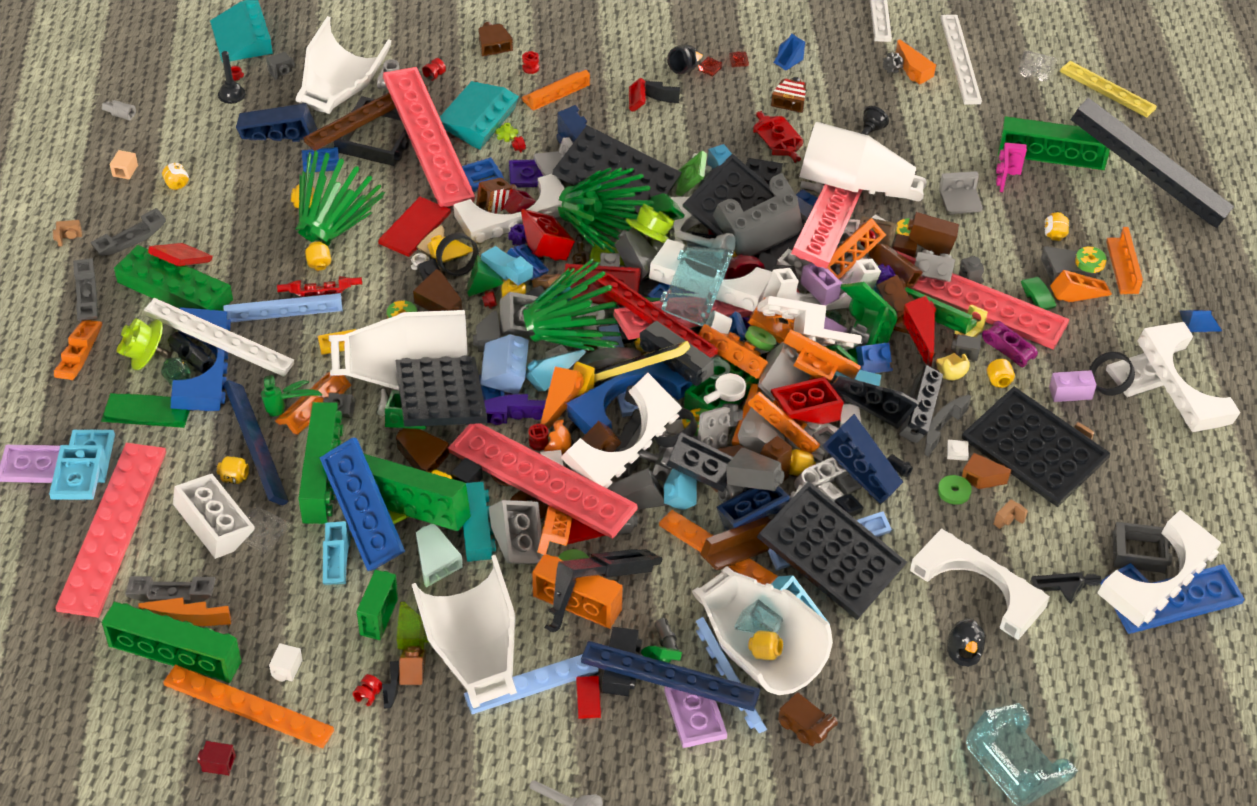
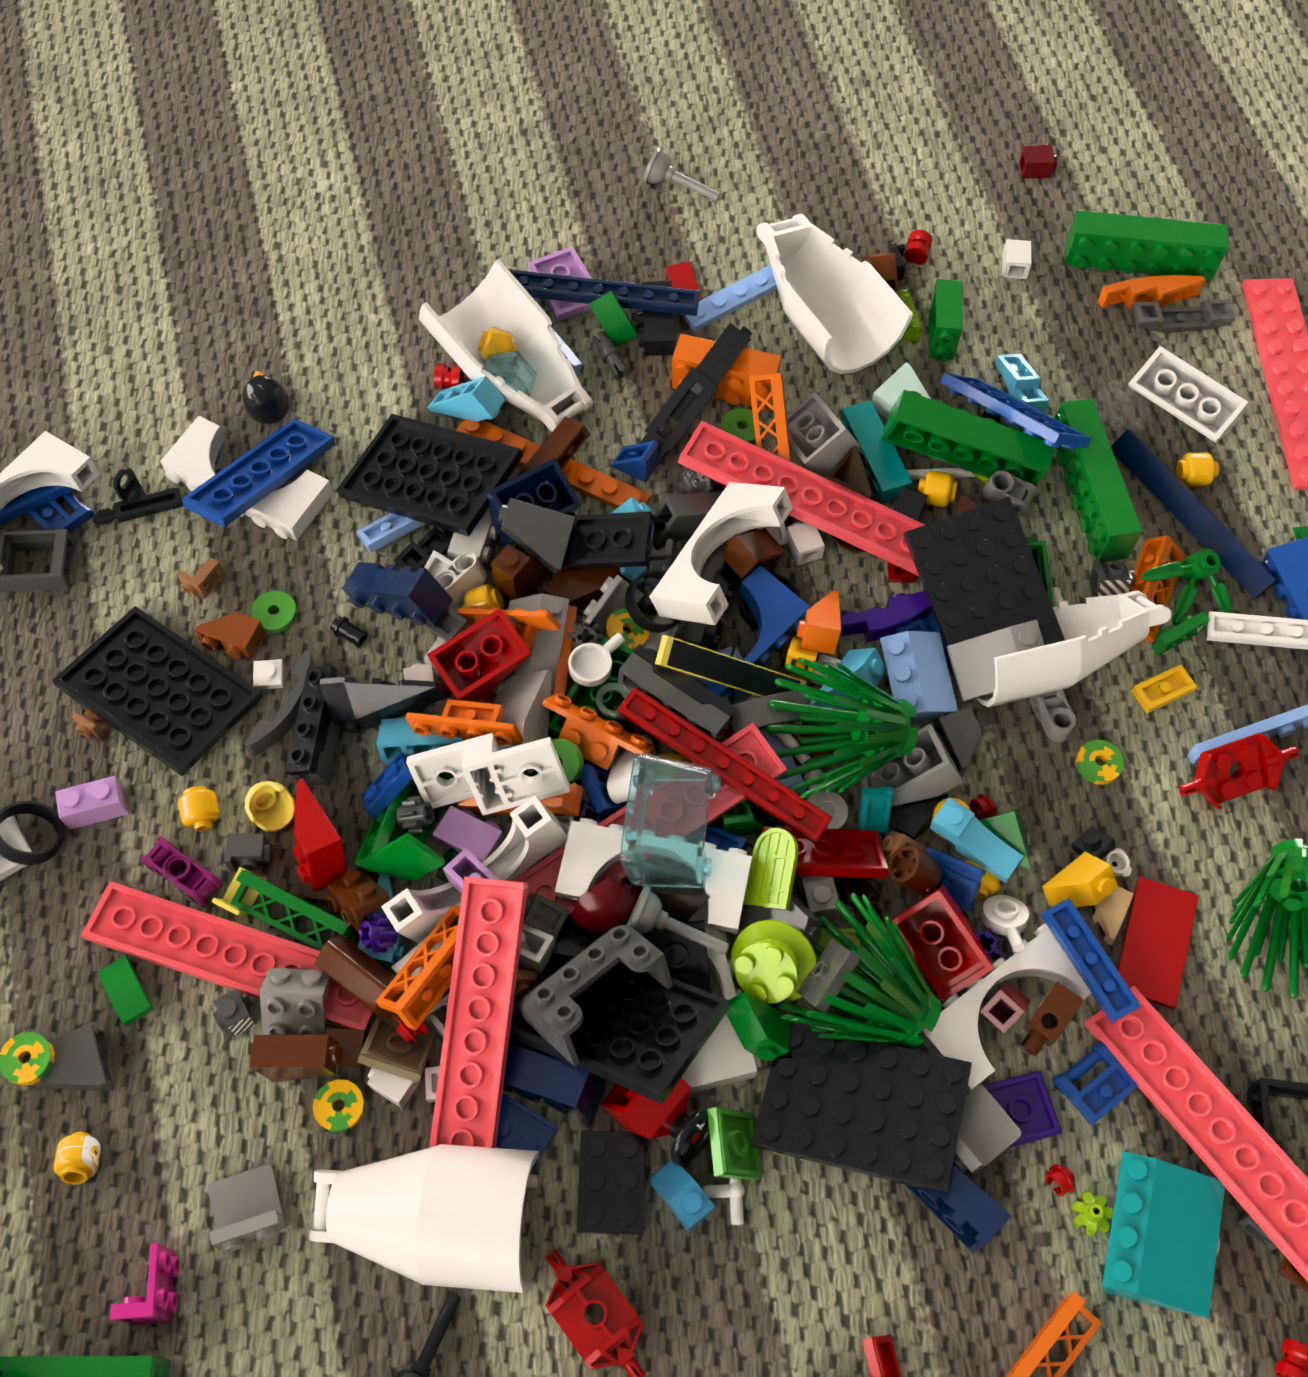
camera: 170 degrees right, 15 degrees up
(249, 706) = (1004, 215): orange plate -> none
(310, 367) = (1185, 629): none -> green piece
(318, 256) = (1267, 832): yellow head -> none
(437, 294) = (1057, 793): reddish brown slope -> none
(445, 241) = (1061, 861): black tyre -> none
(447, 351) = (974, 658): none -> light grey slope
(464, 206) = (1090, 960): none -> blue plate
(500, 239) = (1006, 917): none -> white piece
(503, 486) = (855, 474): none -> dark brown slope
(538, 437) = (838, 572): red wheel -> none
(549, 259) = (914, 870): none -> reddish brown piece
(559, 439) = (806, 572): orange hair -> none
(623, 201) = (827, 975): none -> dark grey plate
(637, 262) = (772, 870): none -> lime window
(665, 545) = (638, 460): none -> blue slope
(806, 720) = (440, 285): reddish brown hinge -> none
(966, 569) = (258, 472): none -> blue plate
(1013, 758) = (207, 287): clear light blue windscreen -> none
(1078, 287) = (58, 1011): orange slope -> none

